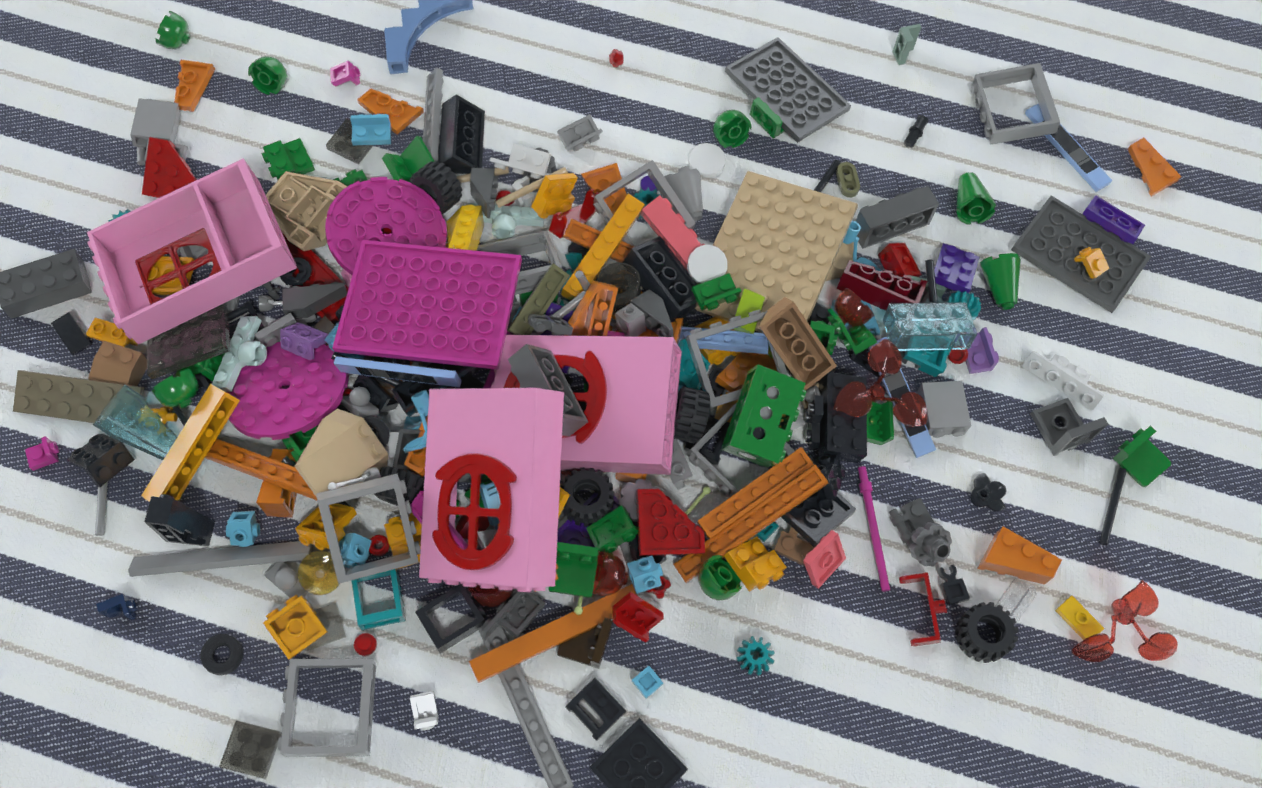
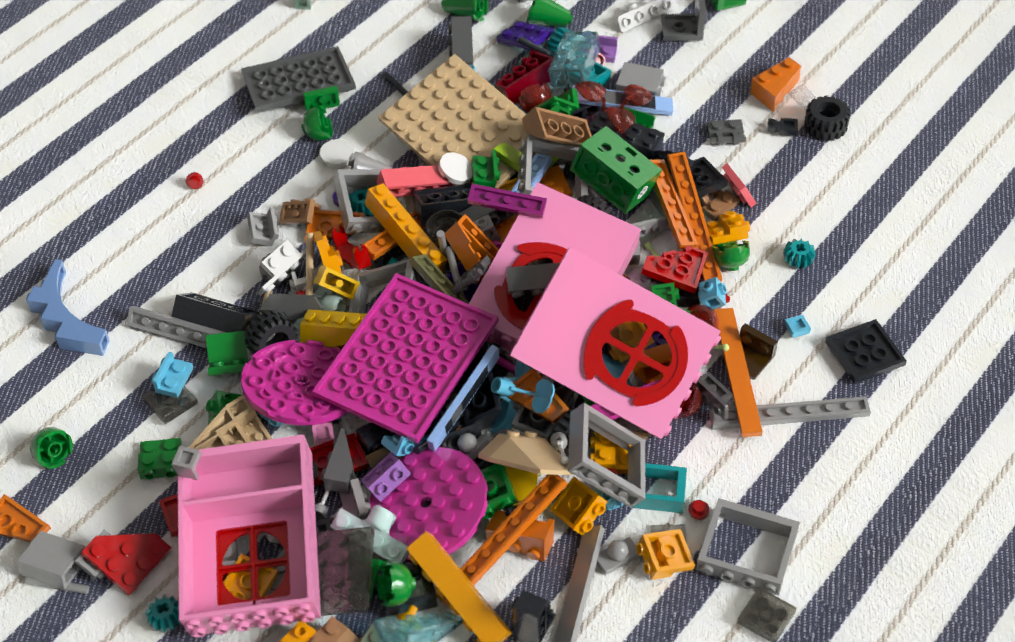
camera: 65 degrees left, 15 degrees down
(215, 642) = (665, 610): black tyre -> none
(222, 164) = (186, 462): none -> light grey panel
(242, 528) = (555, 573): medium azure brick -> none
(307, 571) = (621, 524): clear yellow dish -> none
(343, 73) = (84, 387): dark pink bracket -> none
(399, 112) = (147, 363): orange wing -> none
(424, 710) = (774, 479): white bracket -> none
(462, 633) = (701, 456): black window -> none
(519, 215) = (336, 282): none -> yellow brick
(601, 703) = (807, 359): black plate -> none
(608, 152) = (298, 211): none -> medium nougat bracket
(635, 318) = (507, 201): none -> magenta plate
(636, 616) = (742, 310): red bracket -> none
(848, 181) = (407, 71): olive plate -> none
(866, 489) = (718, 155): dark pink bar -> none
(899, 260) = (497, 67): red bracket -> none
(916, 131) = (383, 18): black axle -> none
(930, 544) = (750, 122): flat silver plant -> none
(935, 606) = (797, 141): red piece -> none
(988, 493) = (718, 84): black plate -> none
(1079, 618) = (832, 70): yellow plate -> none
(1112, 508) = (754, 24): black bar -> none
(1140, 601) = (838, 43): clear red plant -> none

